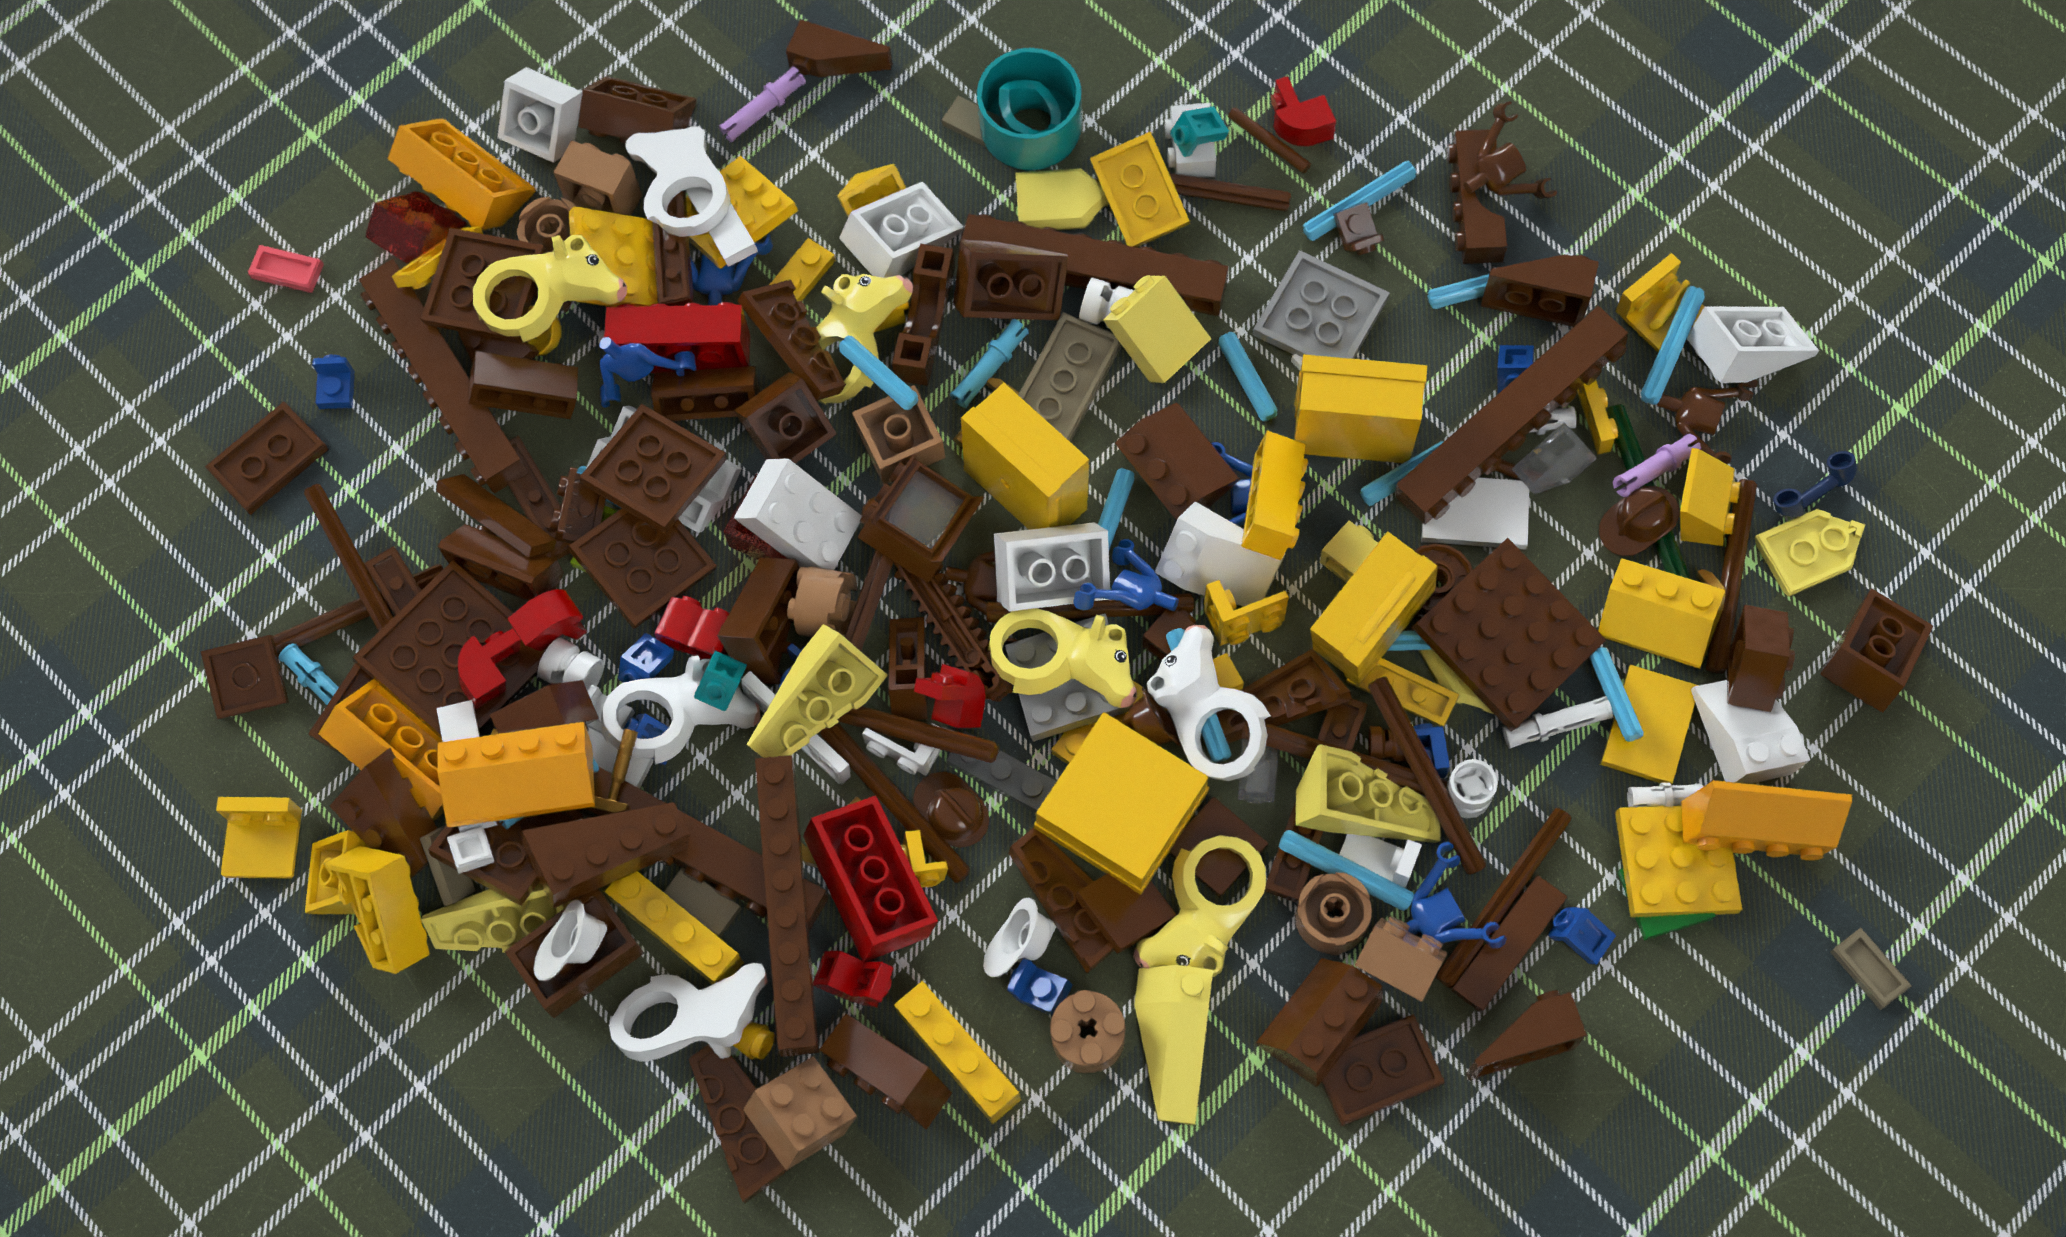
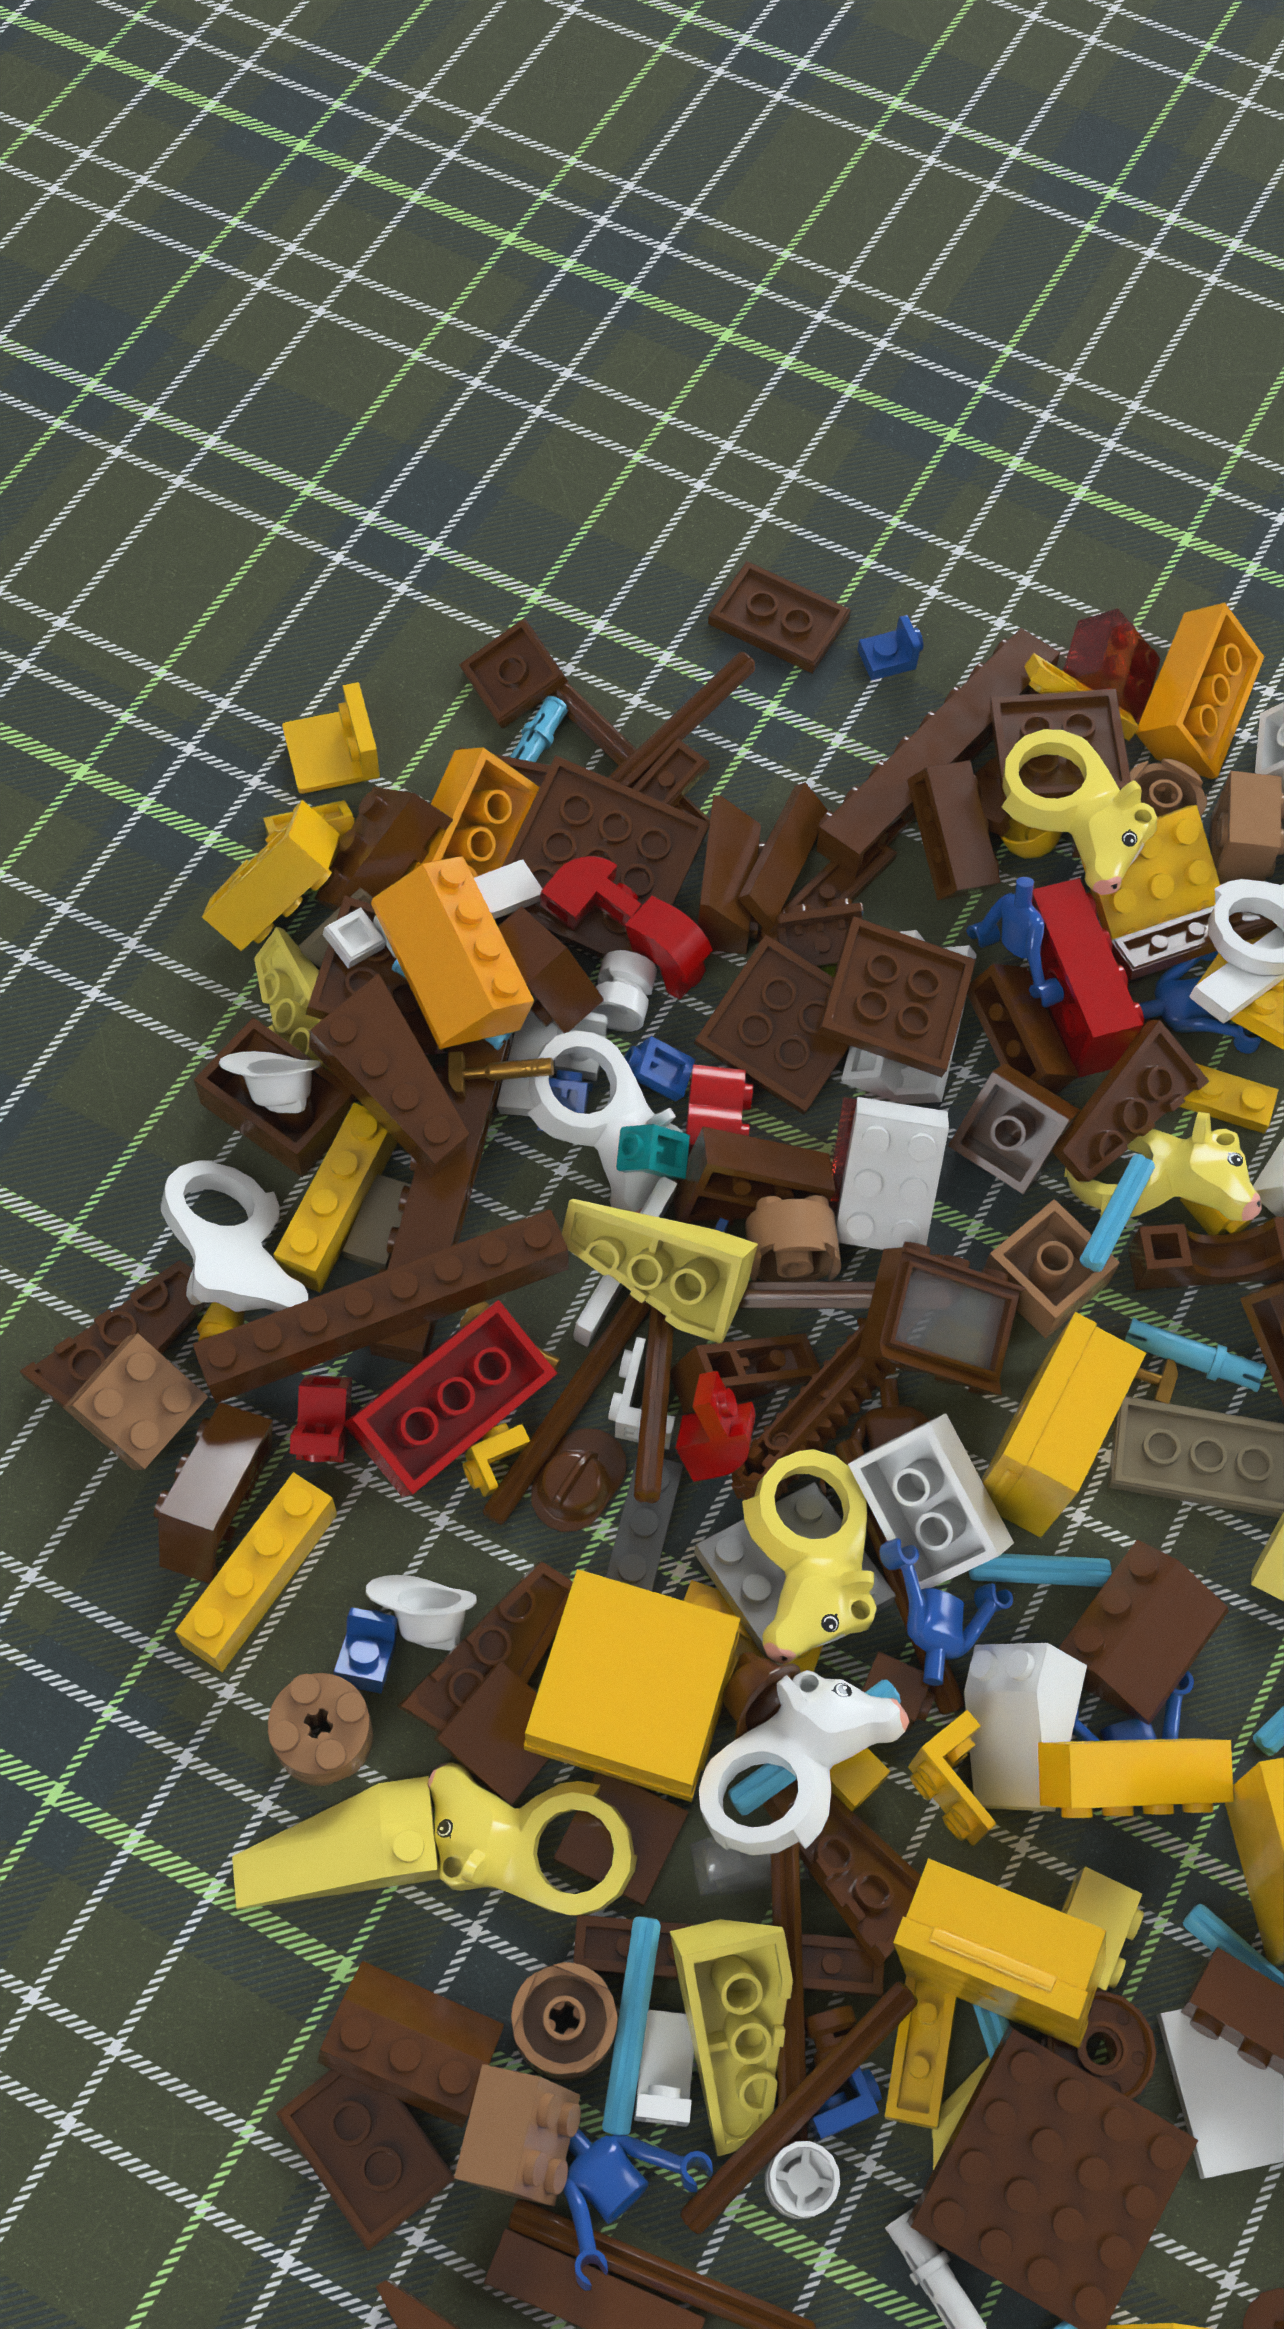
camera: 65 degrees right, 5 degrees down
(285, 269) = (1011, 563): coral tile -> none

